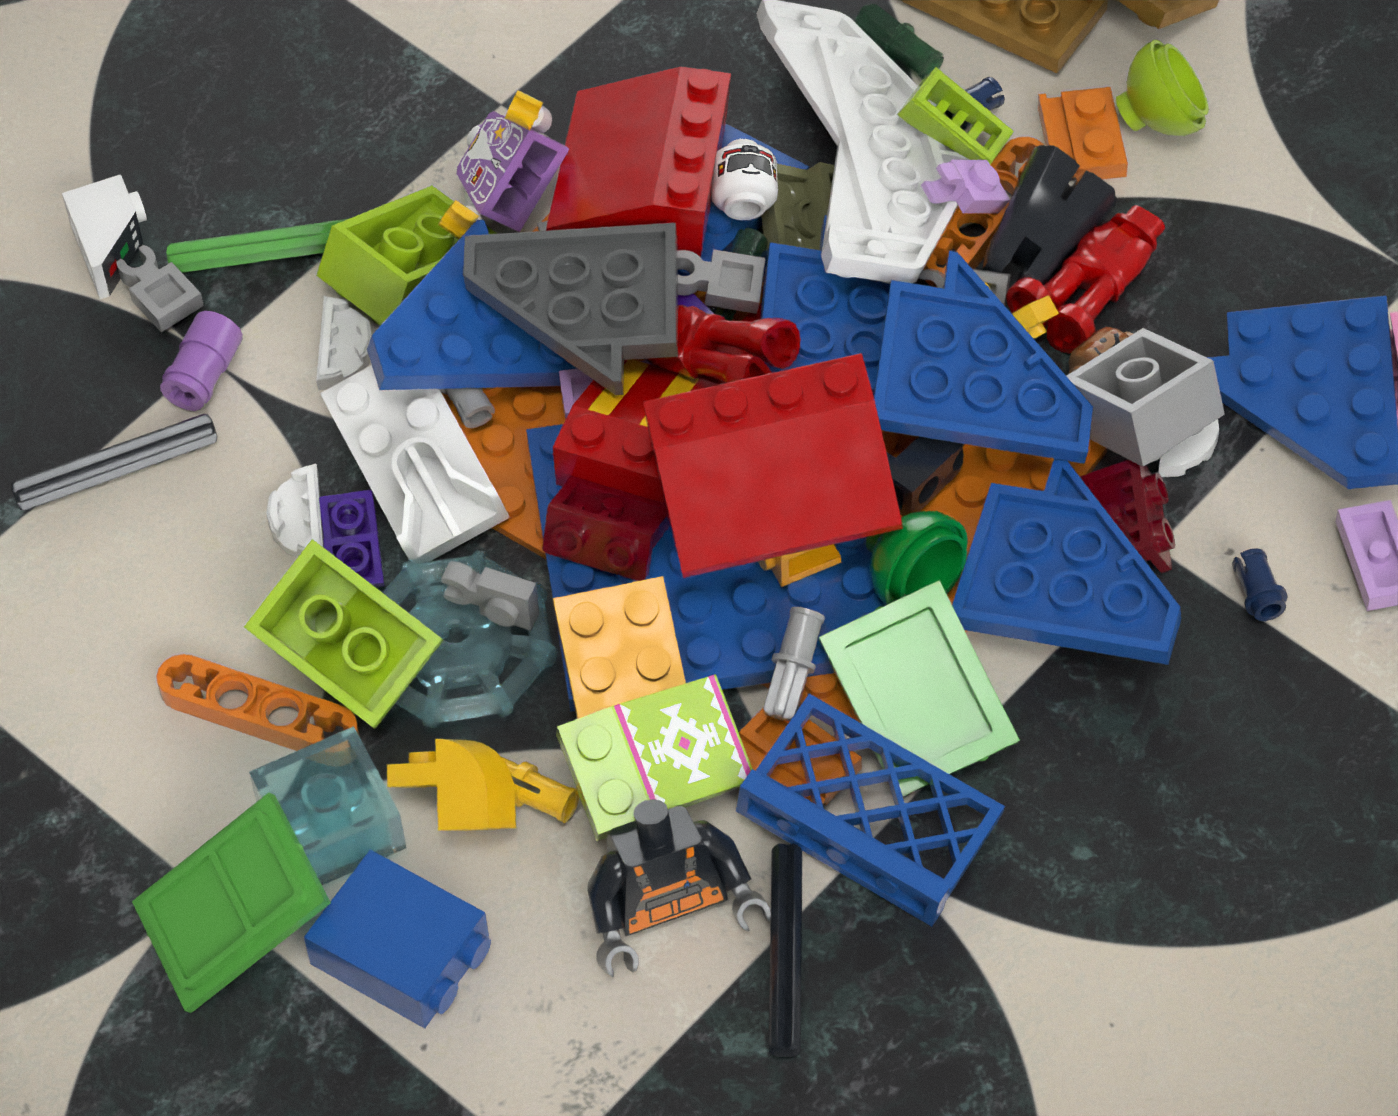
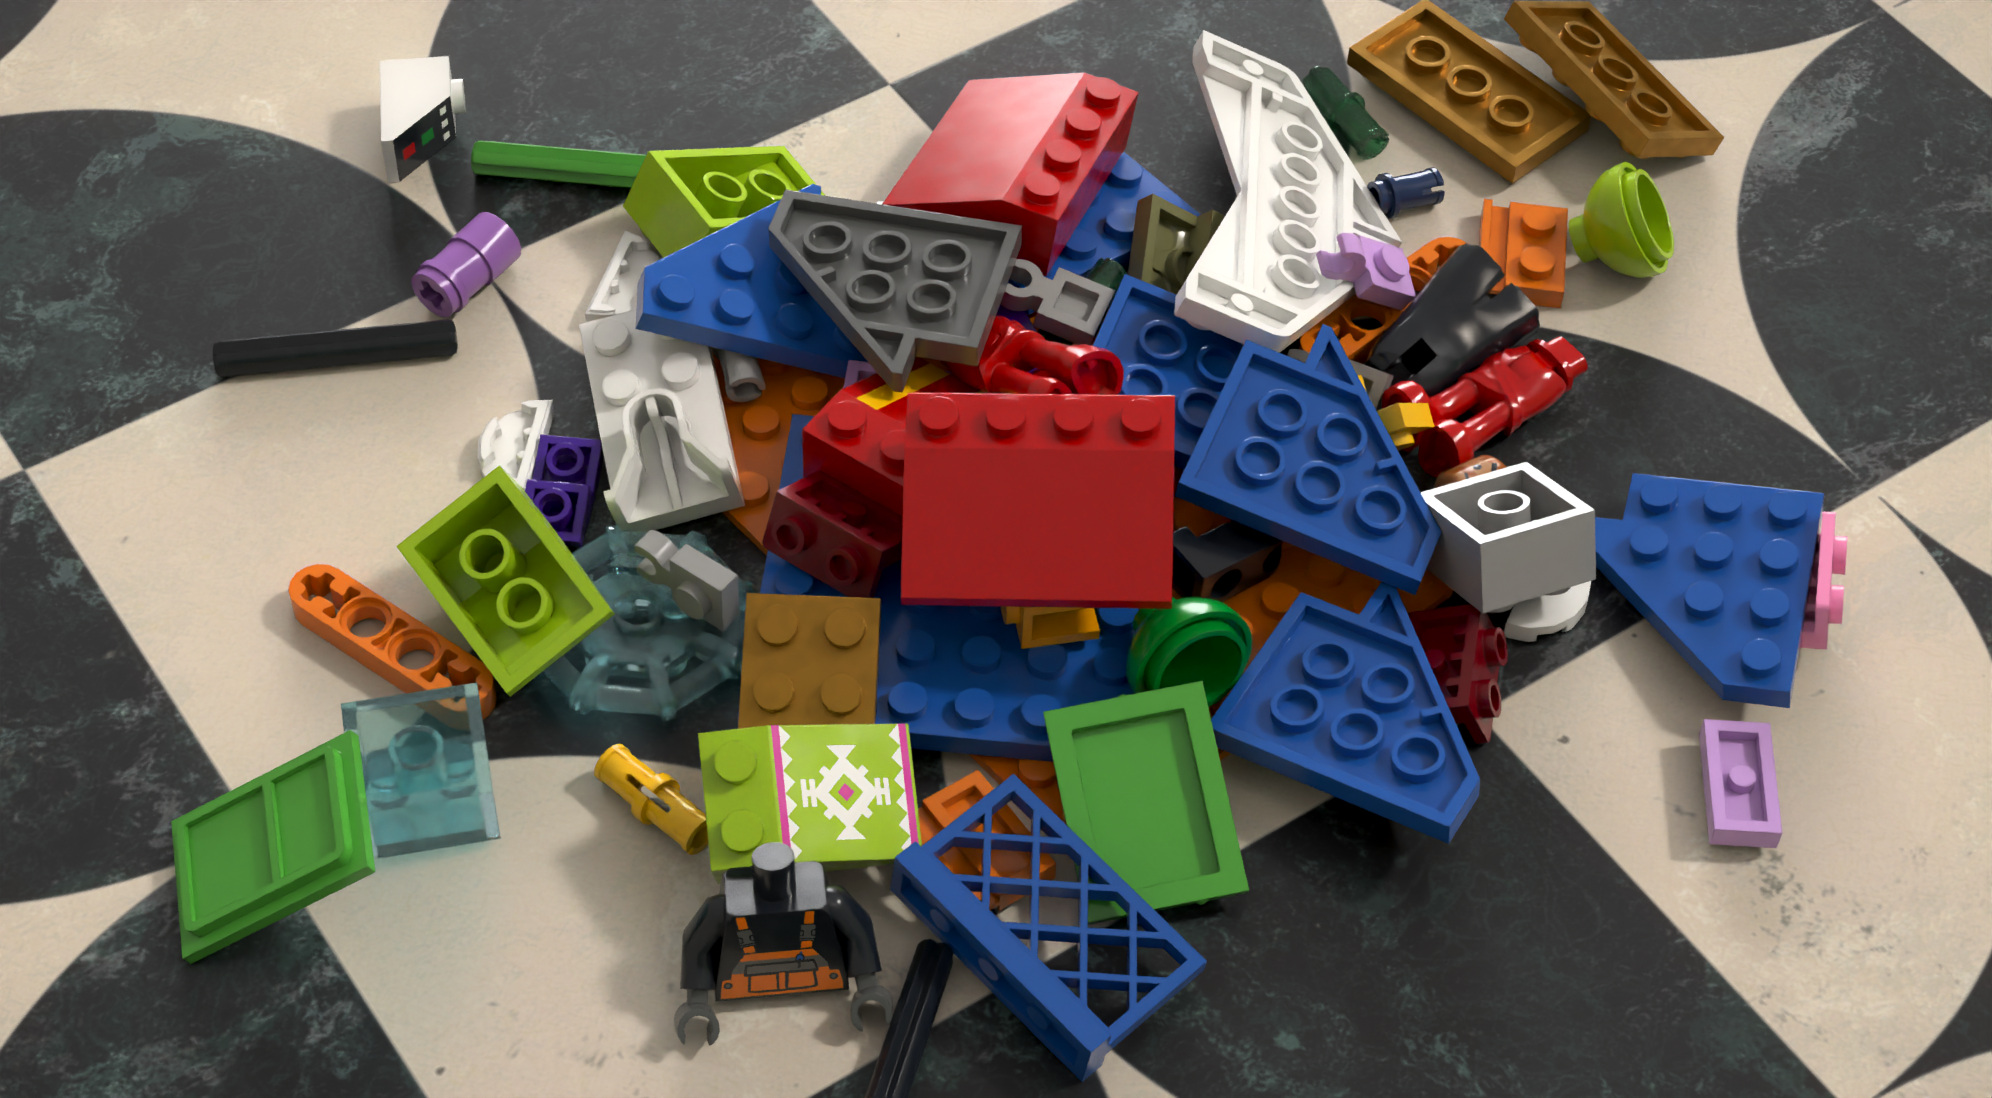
camera: 10 degrees right, 5 degrees down
(160, 293) = (451, 186): light grey plate -> none
(398, 939) = (450, 937): blue brick -> none
(470, 781) = (590, 784): yellow brick -> none
(505, 167) = (864, 135): medium lavender torso -> none
(744, 180) = (1118, 204): white head -> none
(793, 663) = (1006, 734): light grey axle -> none
(951, 97) = (1381, 175): lime slope -> none
(1263, 595) = (1588, 795): dark blue pin -> none

